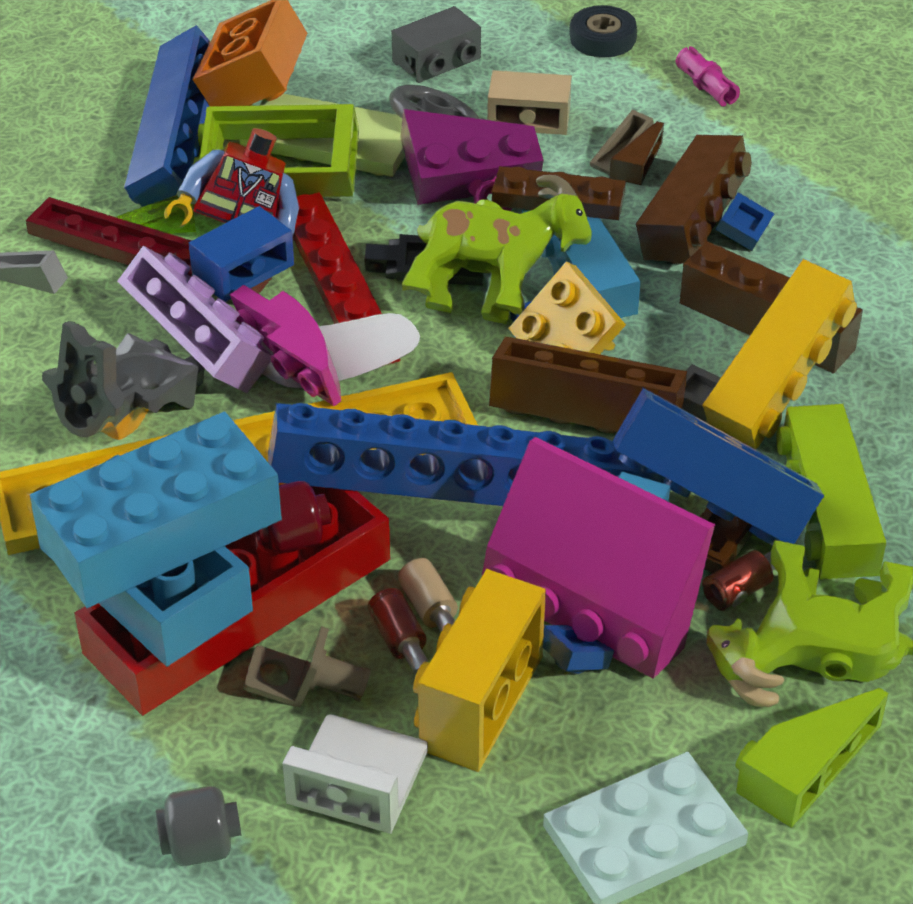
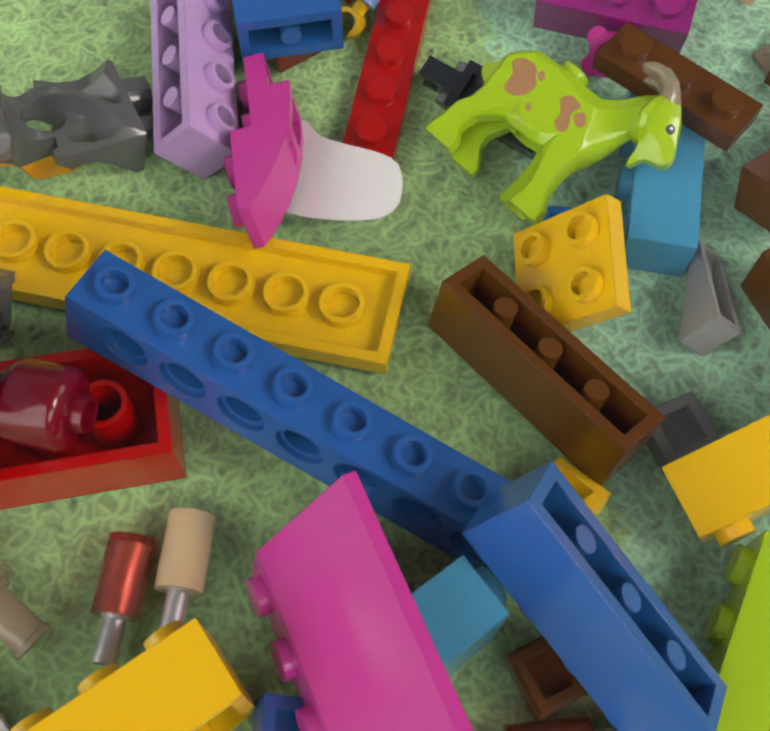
camera: 30 degrees right, 20 degrees up
(669, 320) = (708, 306): none -> light grey piece

